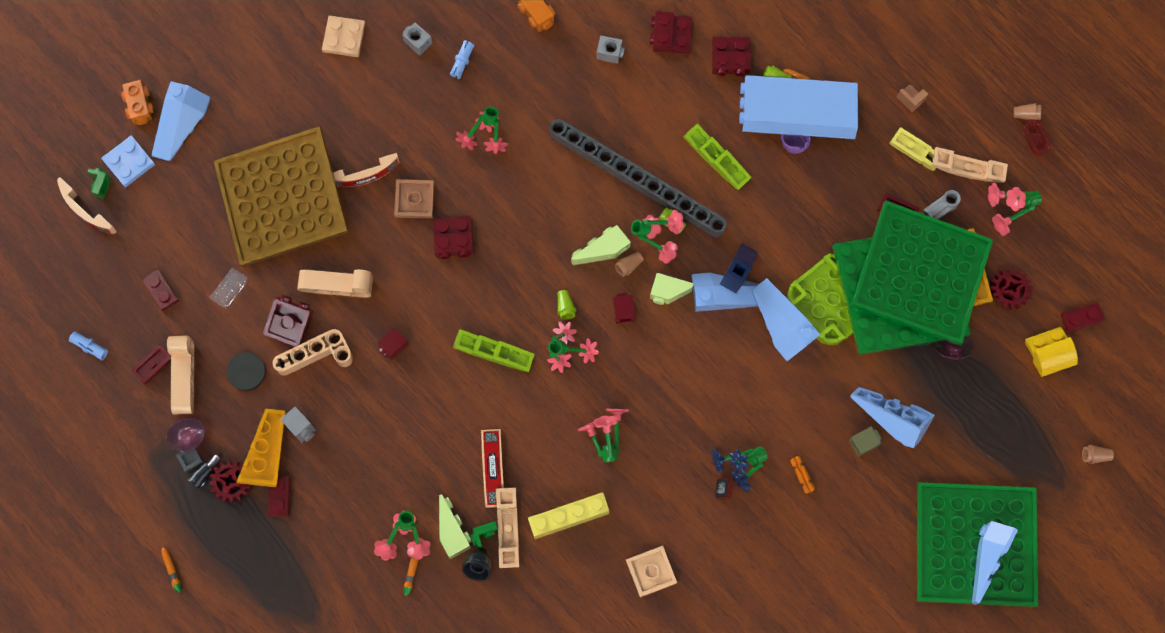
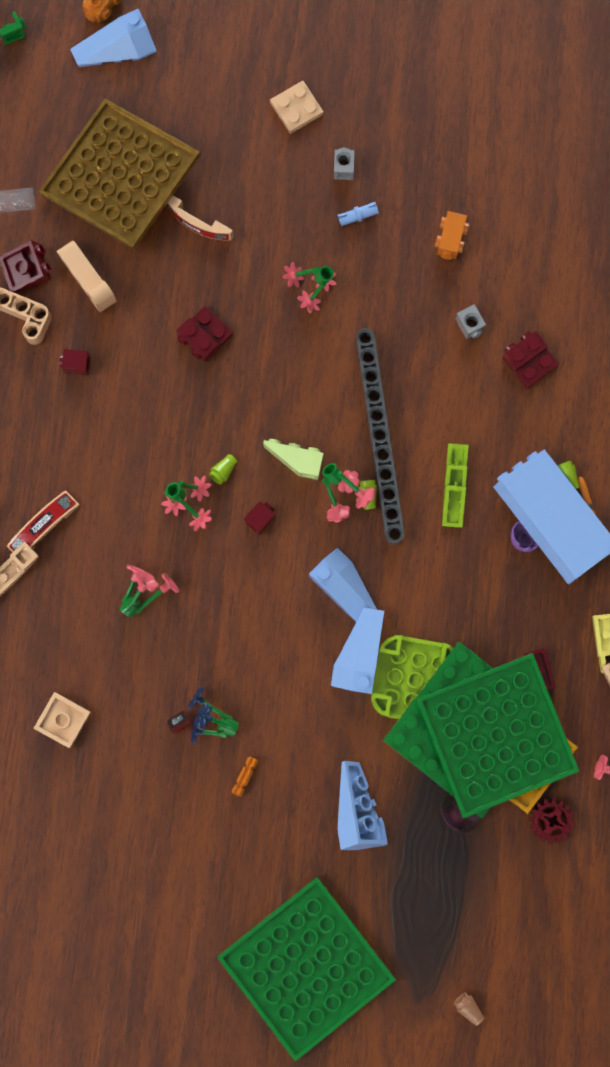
camera: 50 degrees right, 5 degrees up
(128, 161) = (50, 36): light blue plate -> none
(414, 199) = (208, 277): nougat plate -> none
(493, 351) = (137, 445): lime slope -> none
(568, 515) = (51, 616): light yellow brick -> none
(628, 264) = (301, 490): nougat cone -> none
(668, 289) = (306, 539): yellowish green slope -> none
(730, 56) = (553, 423): dark red plate -> none
(739, 268) = (372, 581): dark blue slope -> none
(865, 441) = (315, 805): olive brick -> none
(941, 206) = (571, 704): light grey piece -> none
(993, 544) = (312, 983): light blue wedge -> none
(1052, 351) = (526, 899): yellow brick -> none
(1082, 317) = (580, 901): dark red plate -> none

